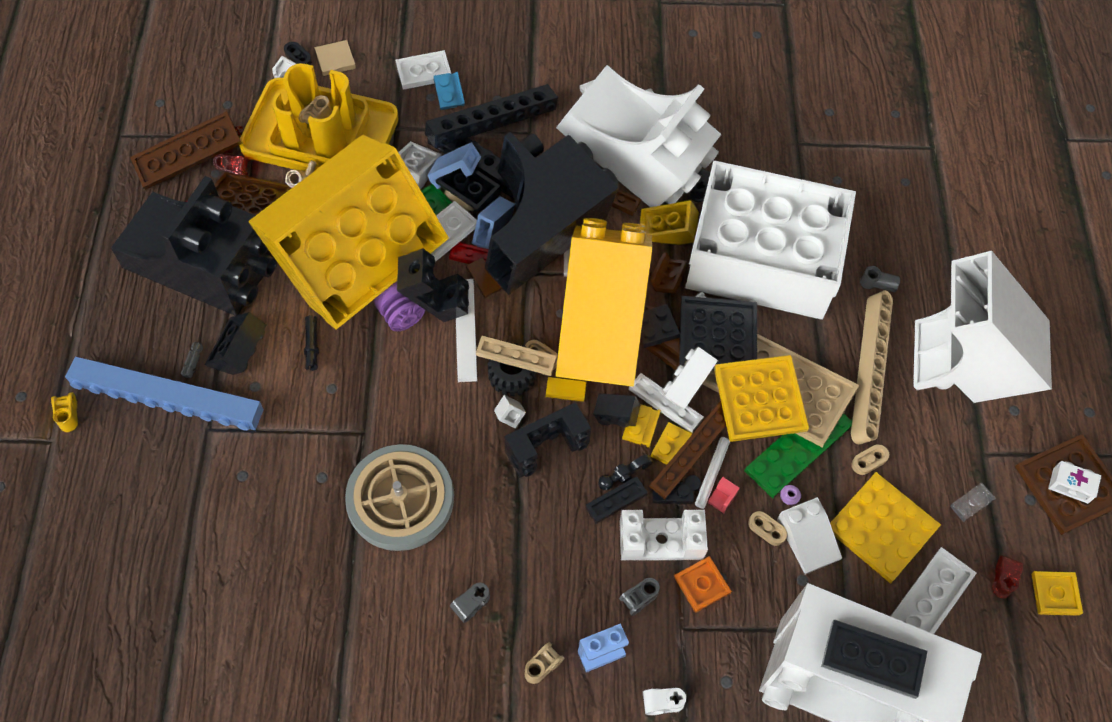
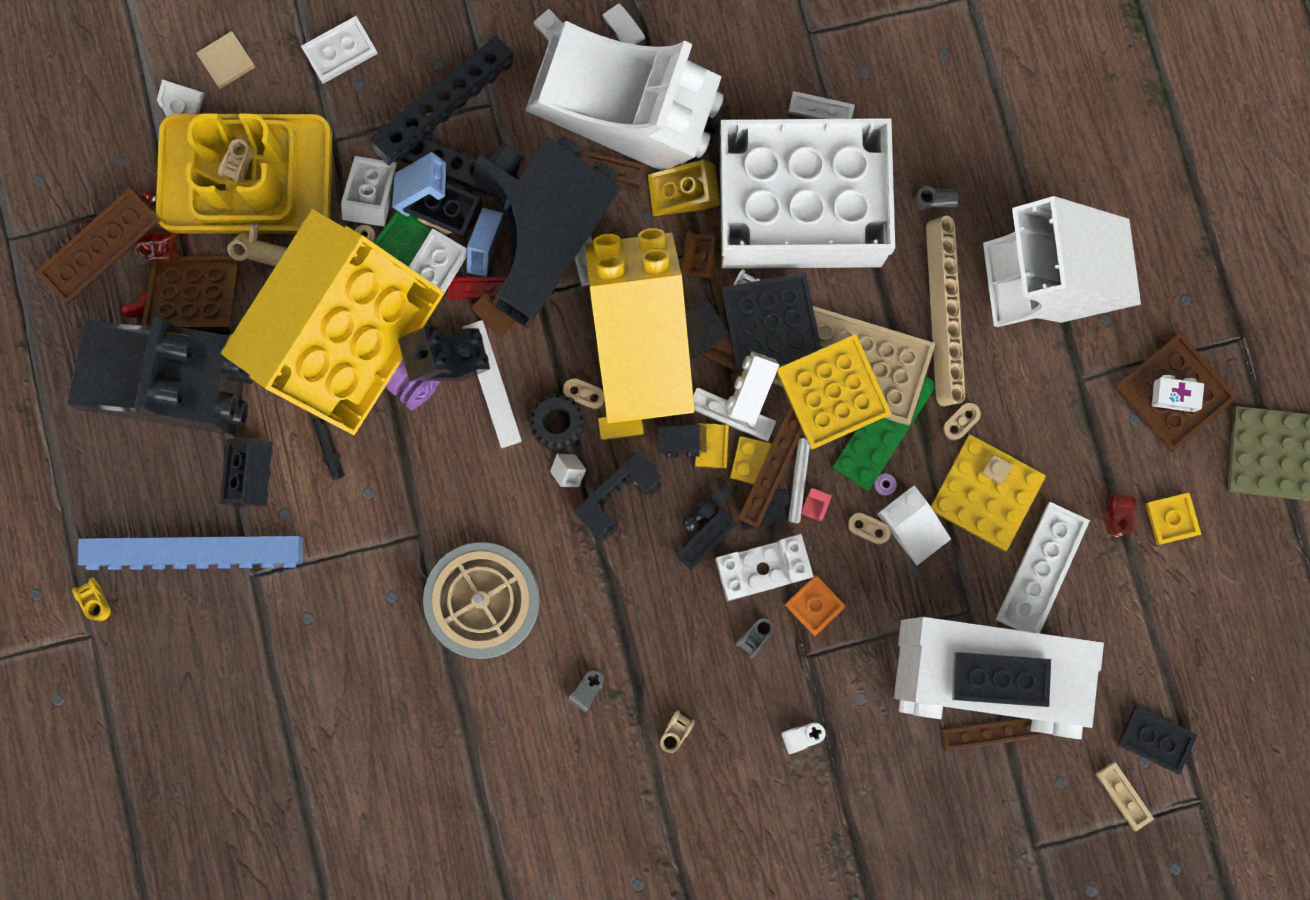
camera: 15 degrees left, 20 degrees up
(192, 360) = (205, 502): dark grey axle -> none
(300, 54) = (180, 70): black plate -> none
(449, 90) = (379, 73): dark azure plate -> none
(516, 355) = (559, 412): tan plate -> none
(602, 647) = (732, 705): light blue panel -> none
(896, 505) = (996, 469): none -> tan plate
(972, 502) = (1075, 441): clear plate -> none

